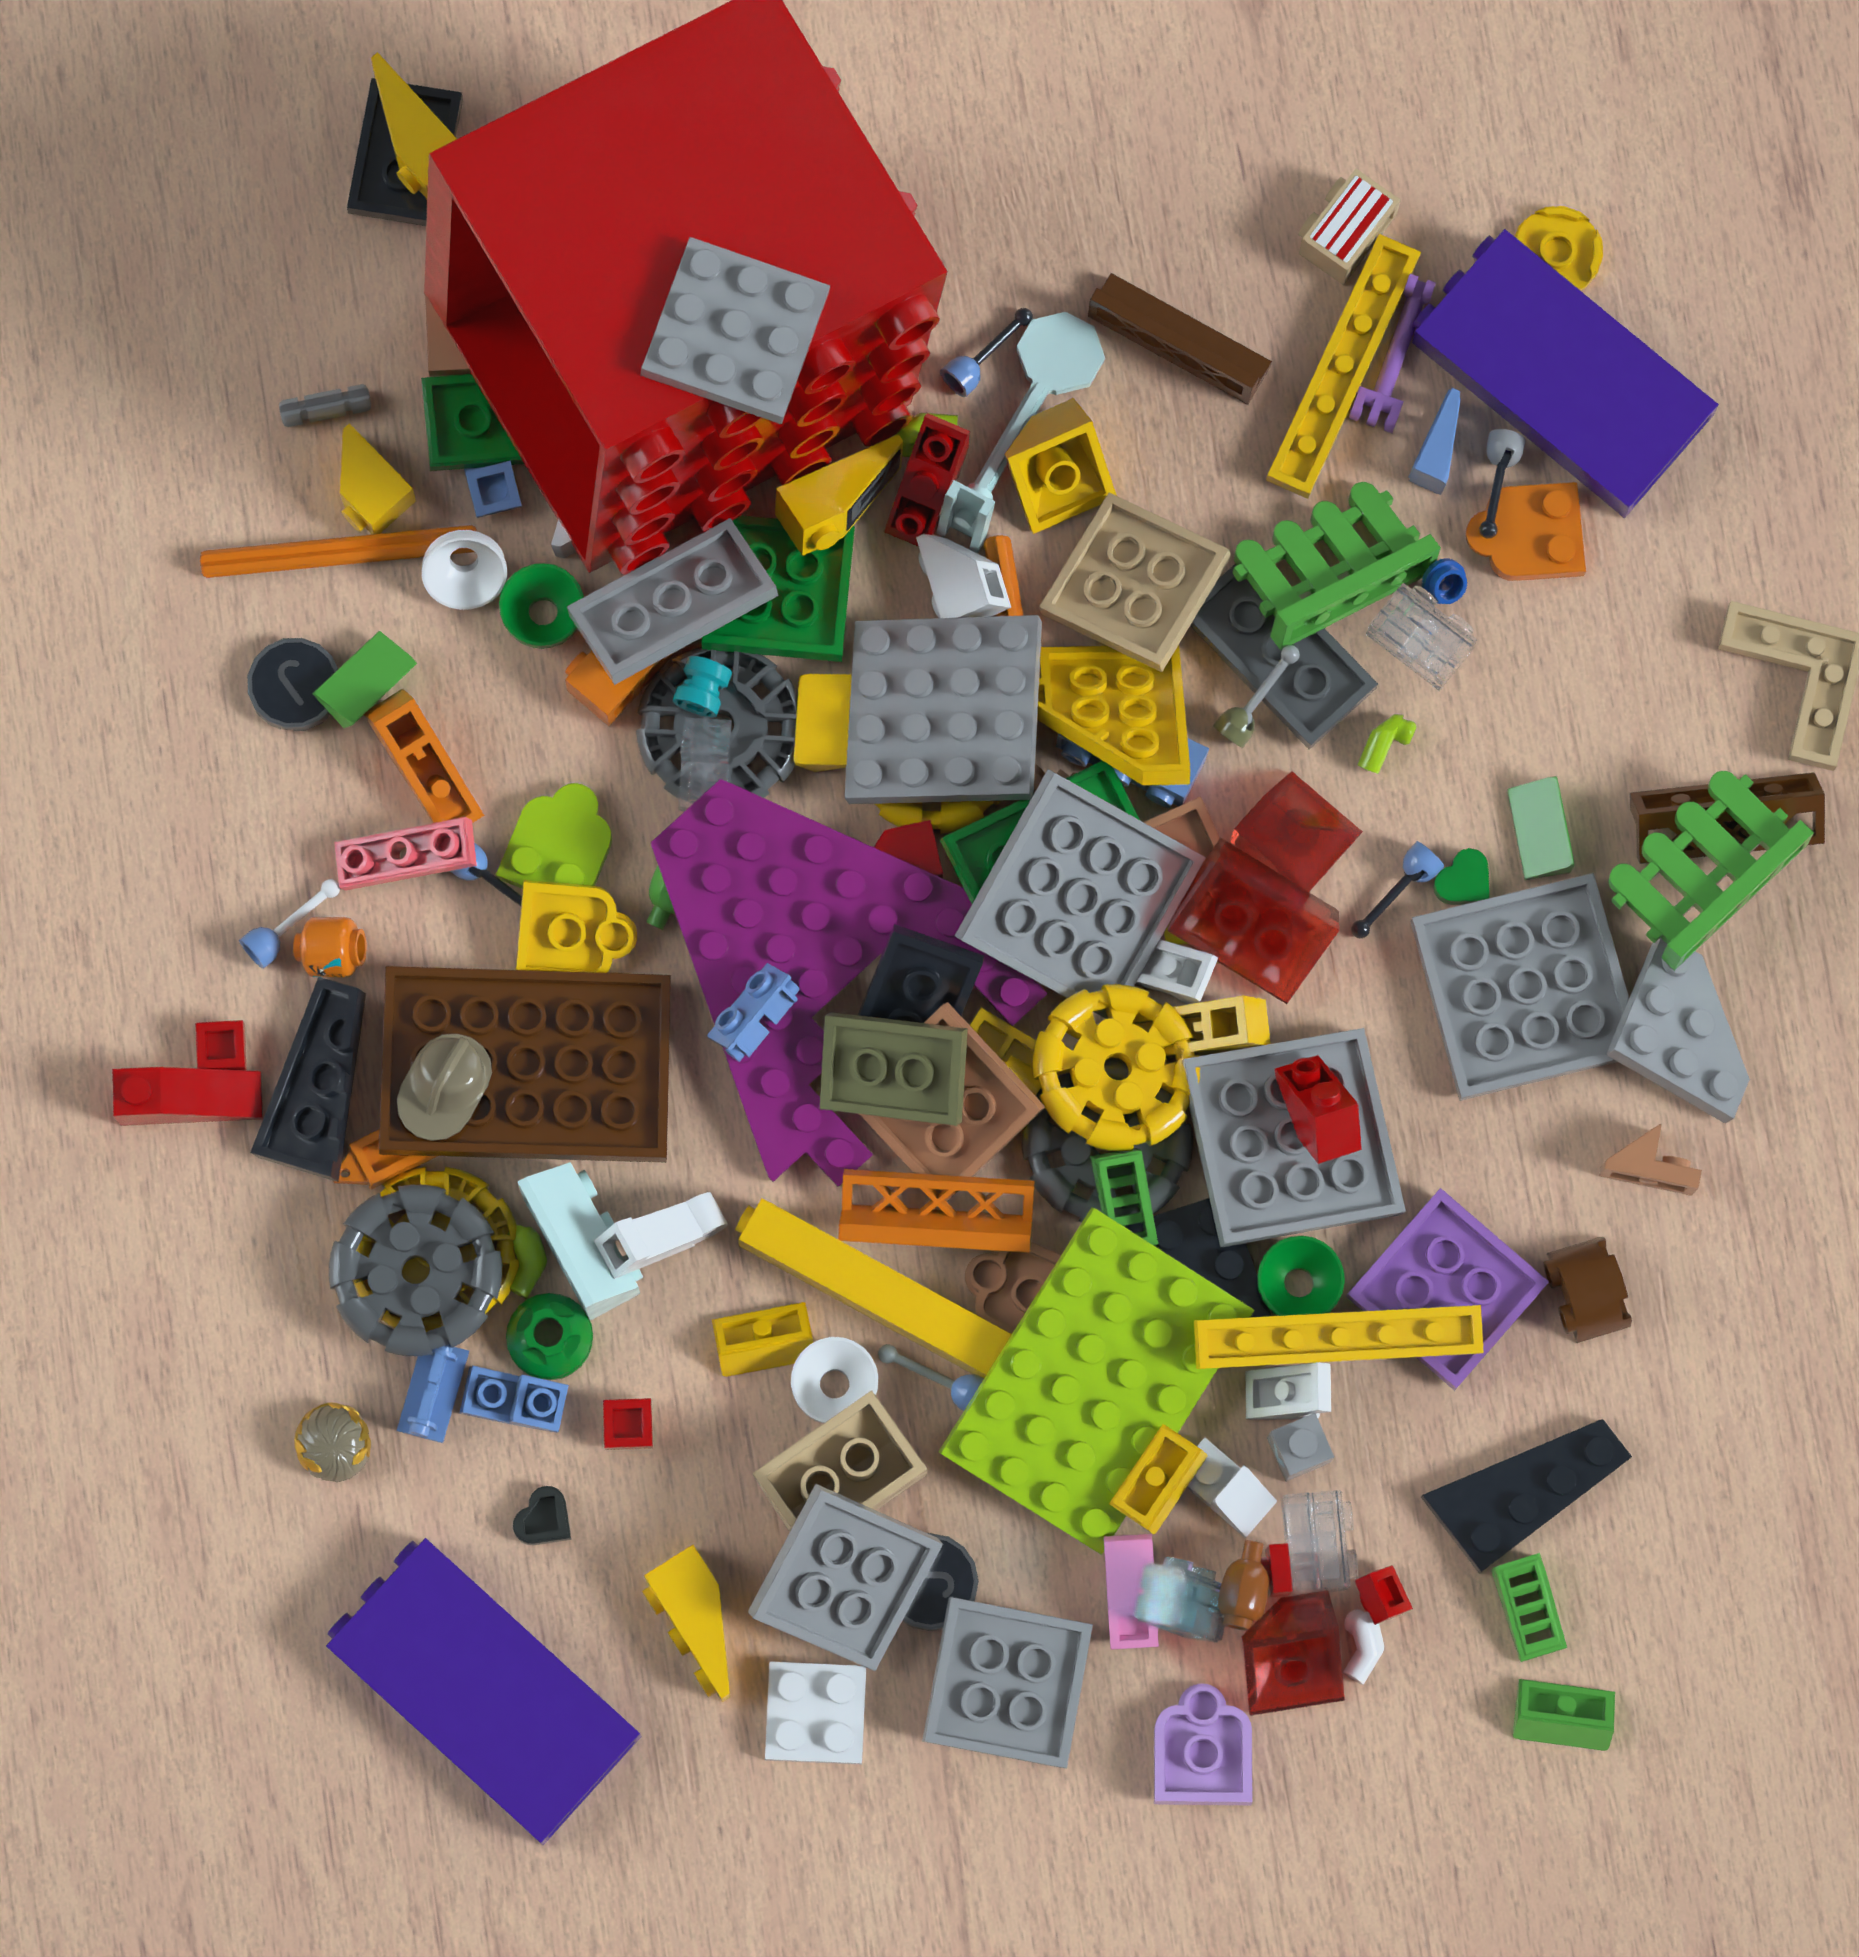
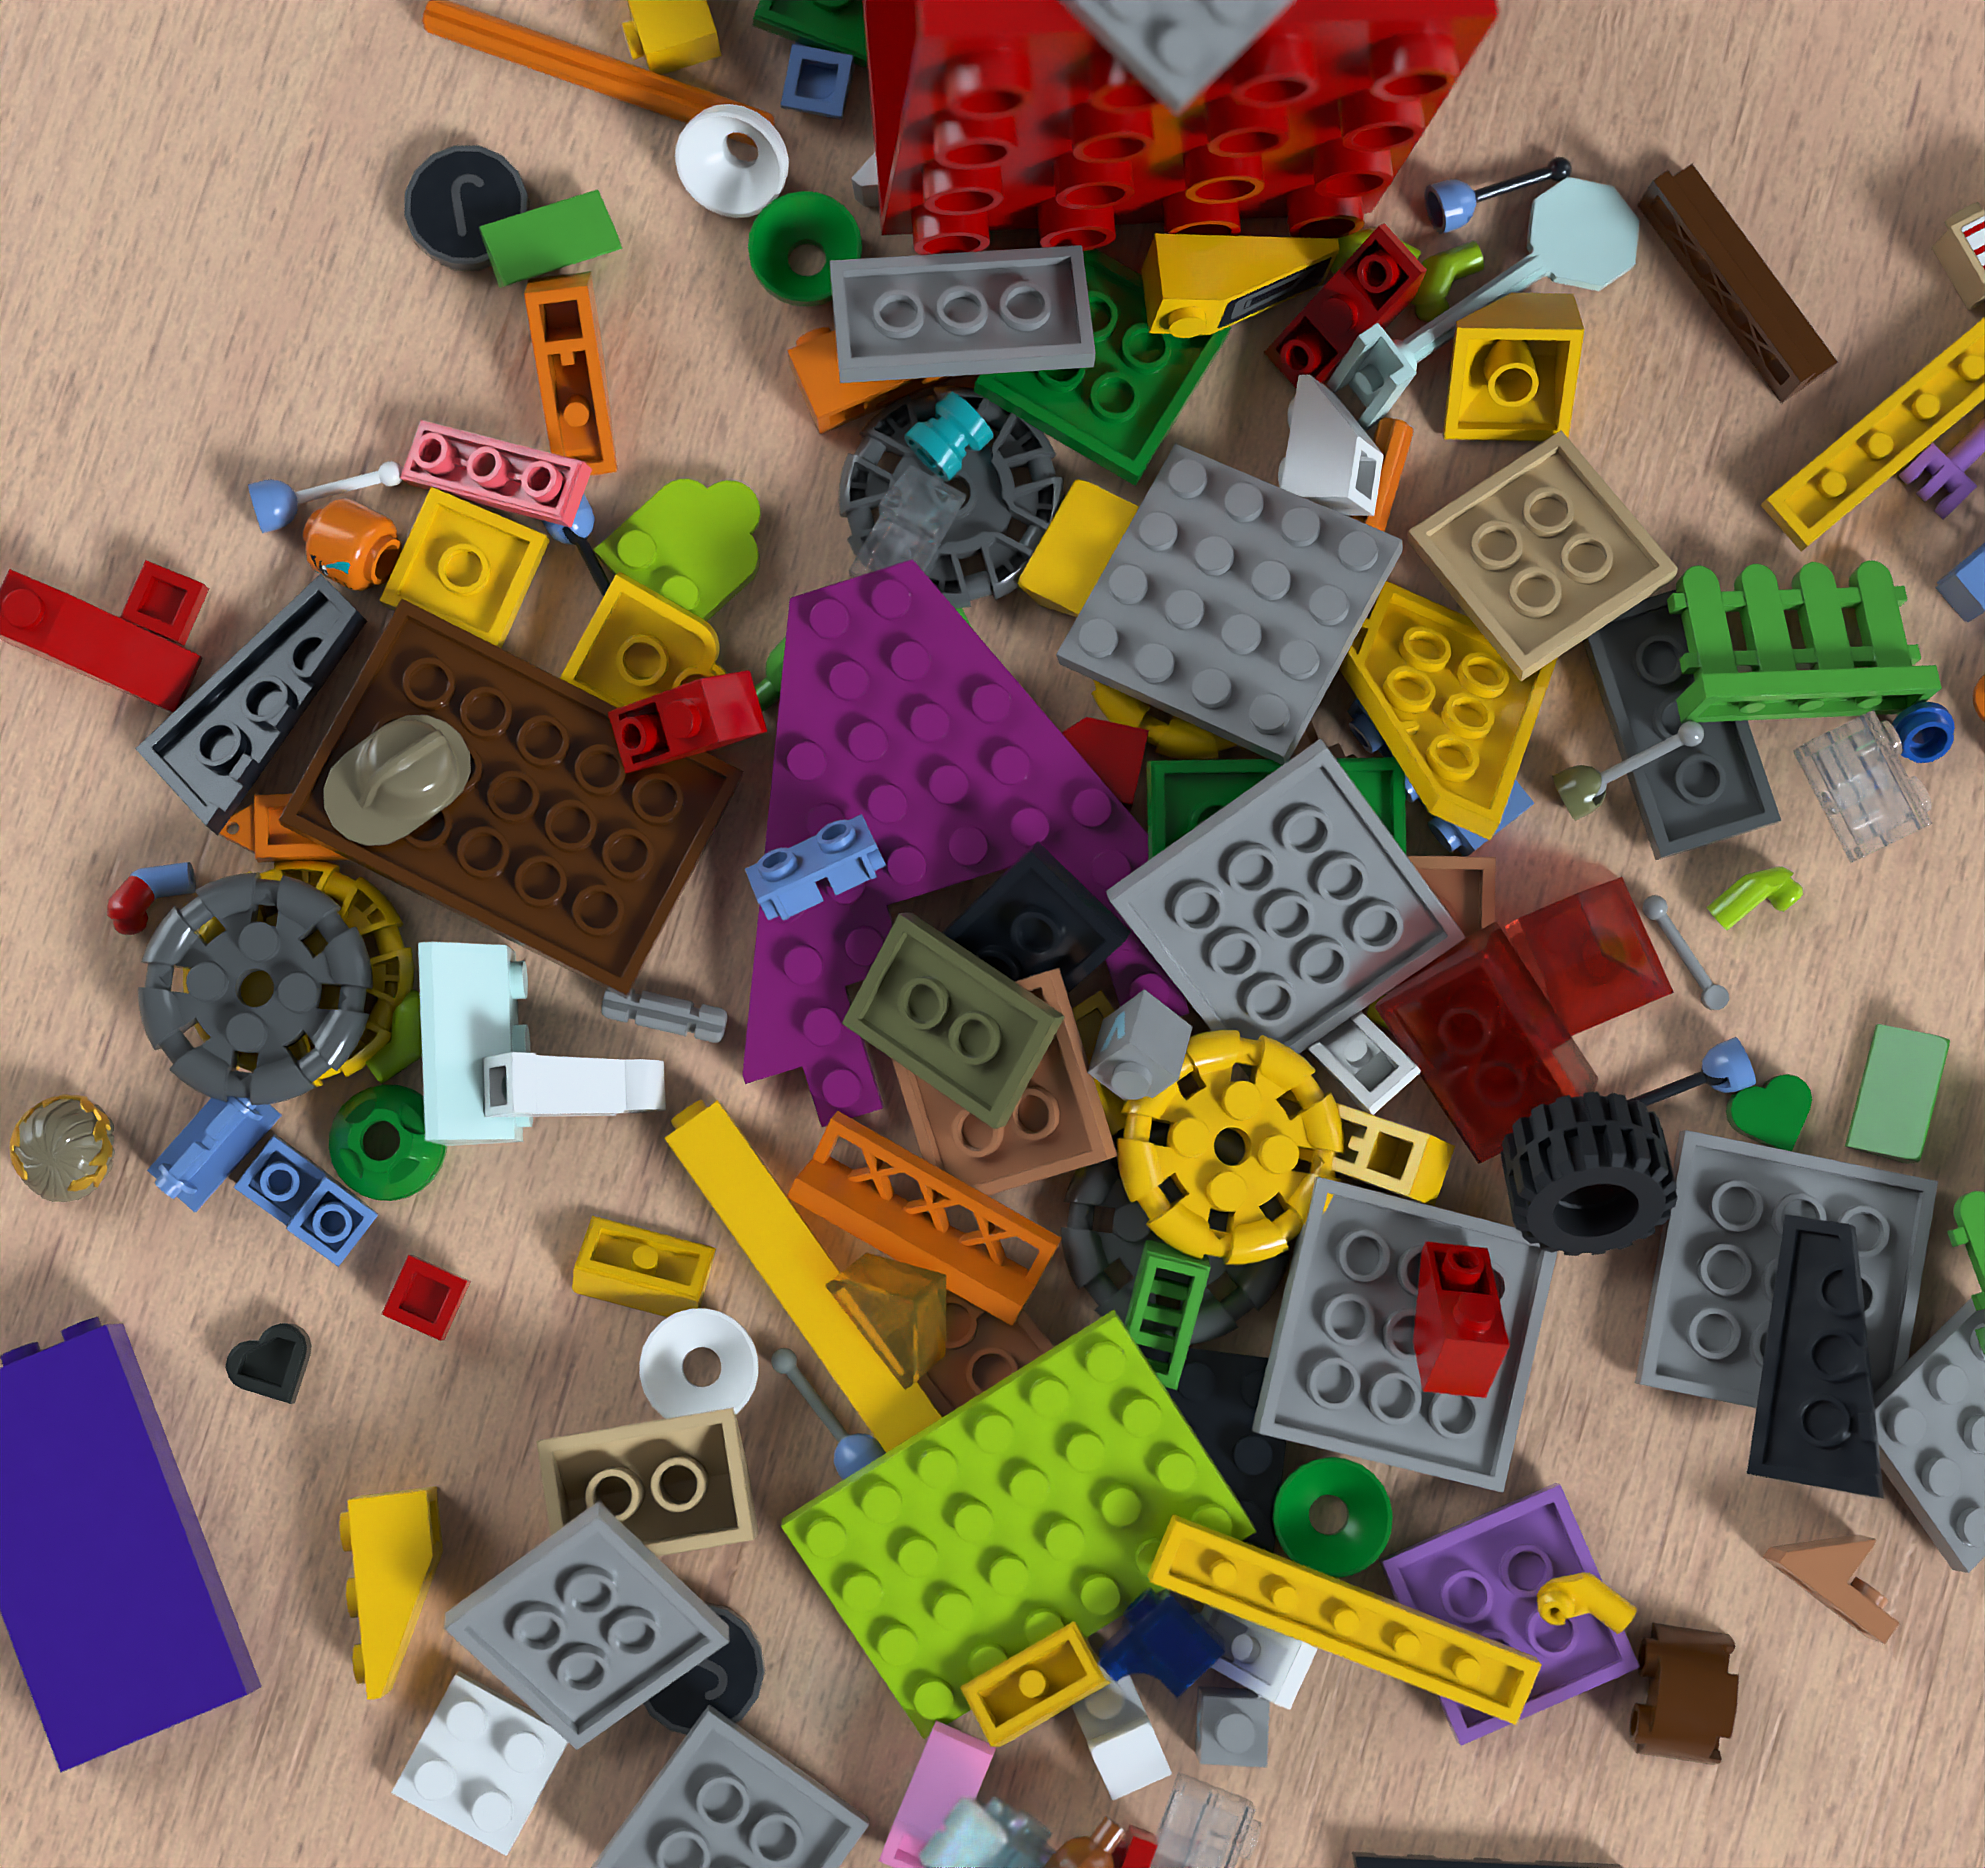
camera: 25 degrees right, 5 degrees up
(300, 1246) = (142, 888): none -> arm
(414, 925) = (466, 566): none -> yellow plate
(619, 957) = (687, 720): none -> red slope
(696, 1161) = (666, 1014): none -> light grey axle
(950, 1278) = (896, 1311): none -> clear yellow slope
(978, 422) = (1440, 274): none -> lime arm
(1026, 1029) = (1140, 1048): none -> light grey brick
(1227, 1407) = (1162, 1639): none -> clear blue brick
(1359, 973) = (1588, 1174): none -> black tyre
(1391, 822) = (1713, 996): none -> light grey hinge
(1487, 1251) = (1580, 1595): none -> yellow arm
(1571, 1036) = (1816, 1373): none -> black wing

